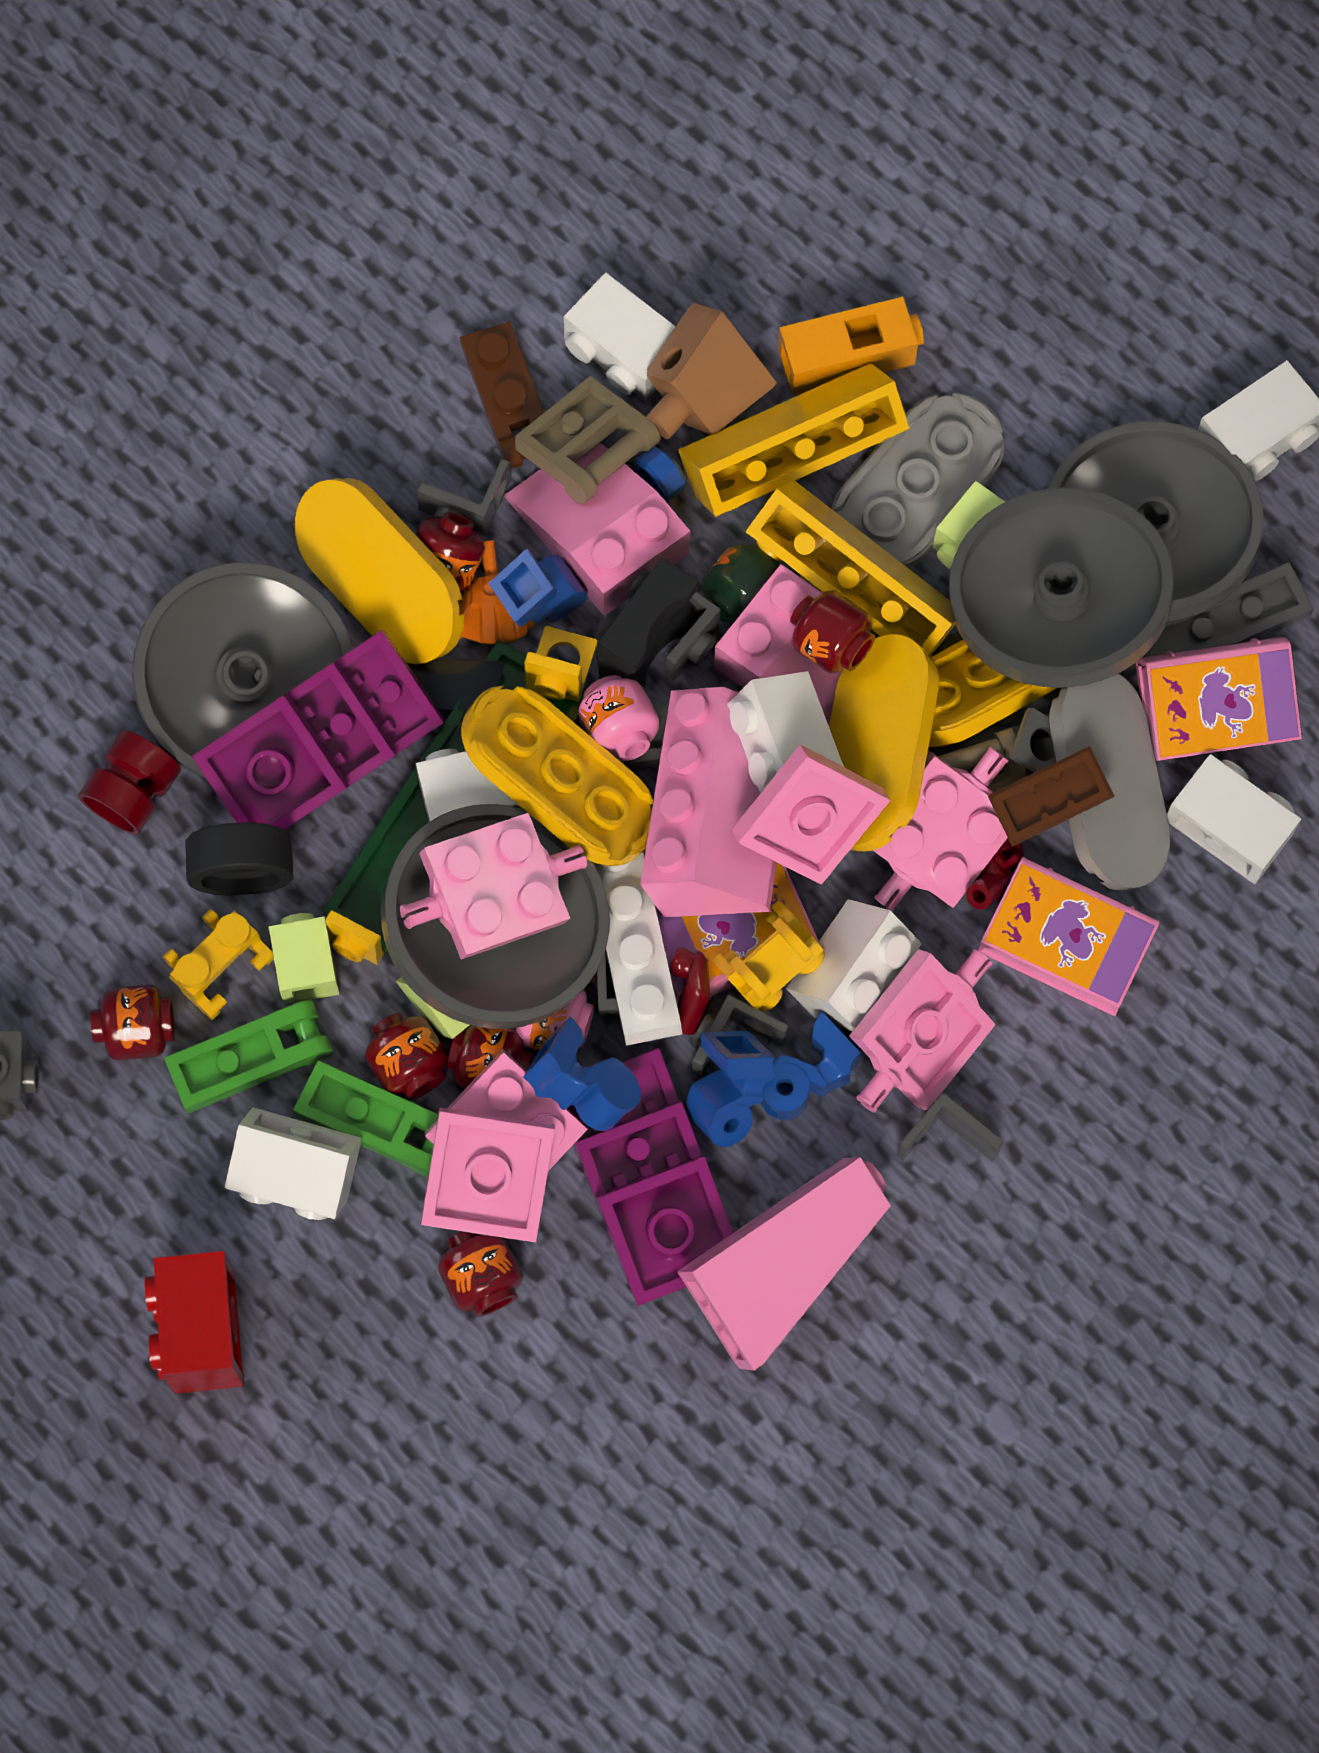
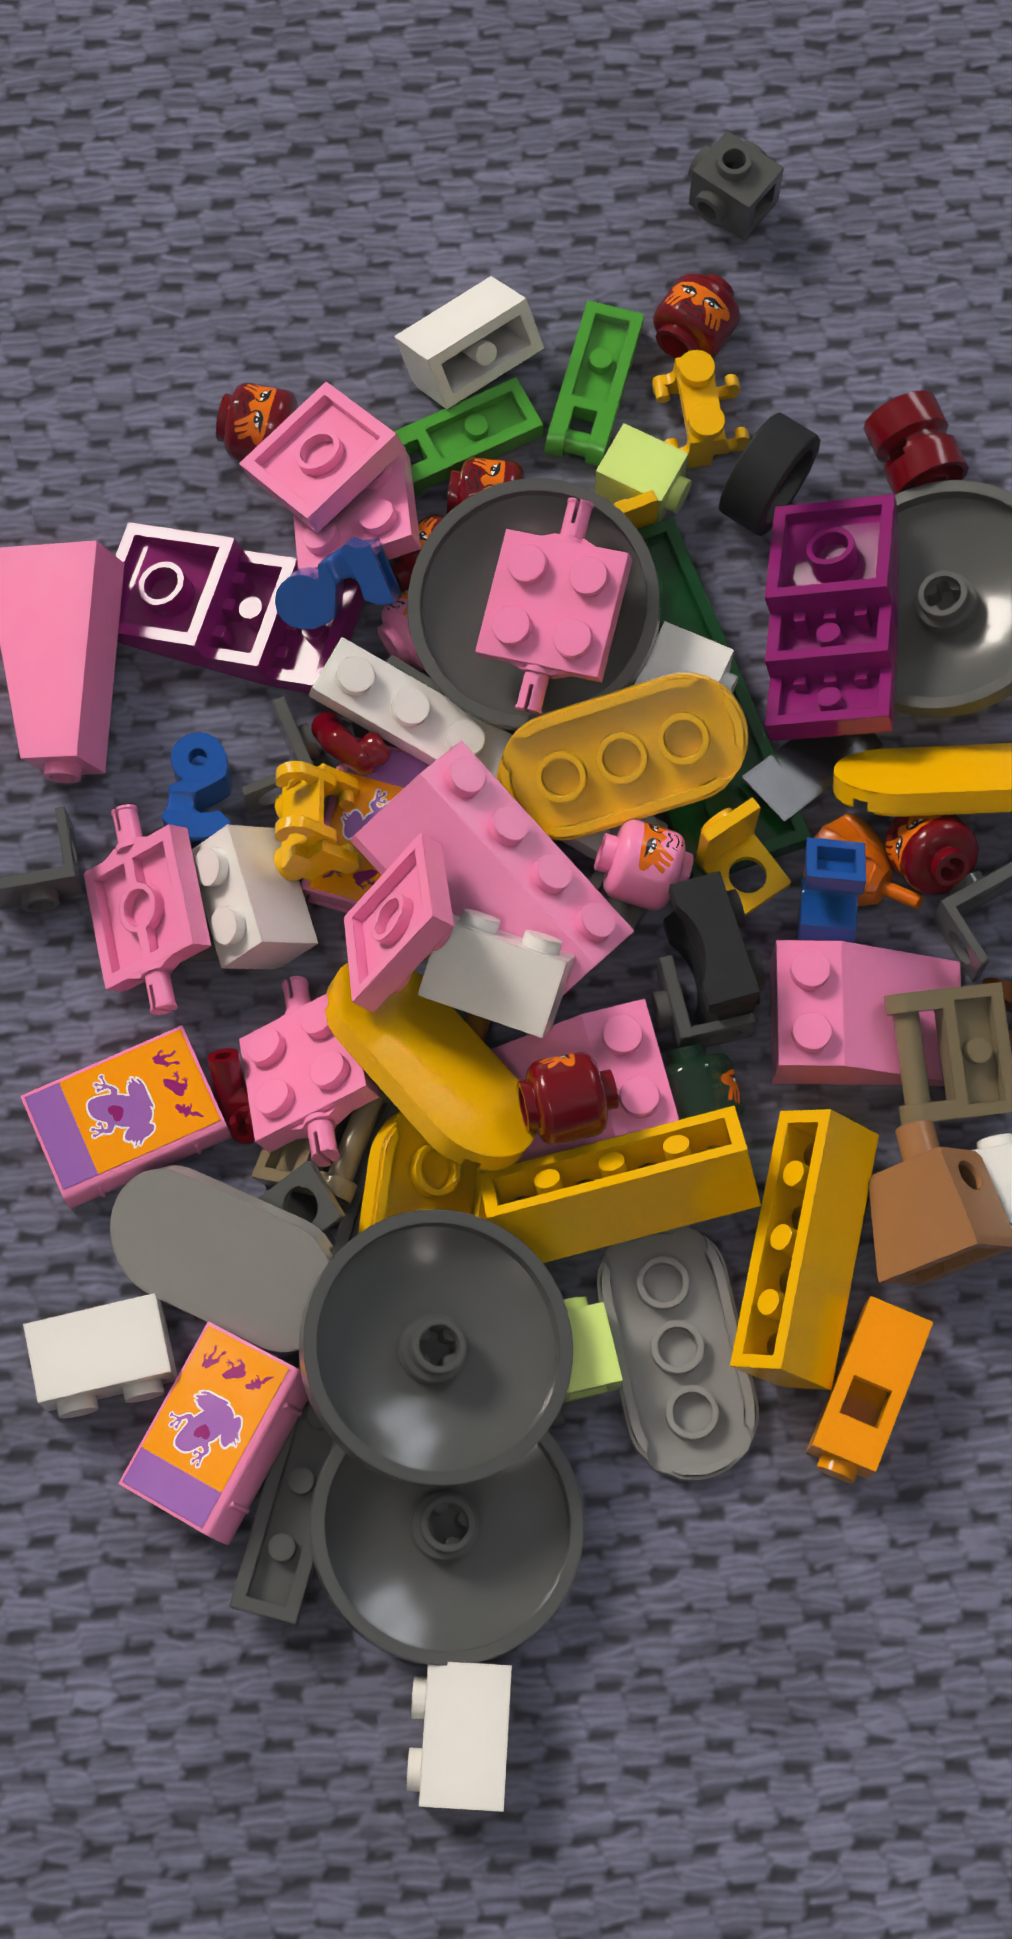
camera: 130 degrees right, 0 degrees up
(197, 1322) = (393, 176): red brick -> none
(661, 472) = (870, 1105): blue tile -> none
(723, 1099) = (237, 711): blue leg -> none
(1051, 796) = (241, 1164): reddish brown plate -> none

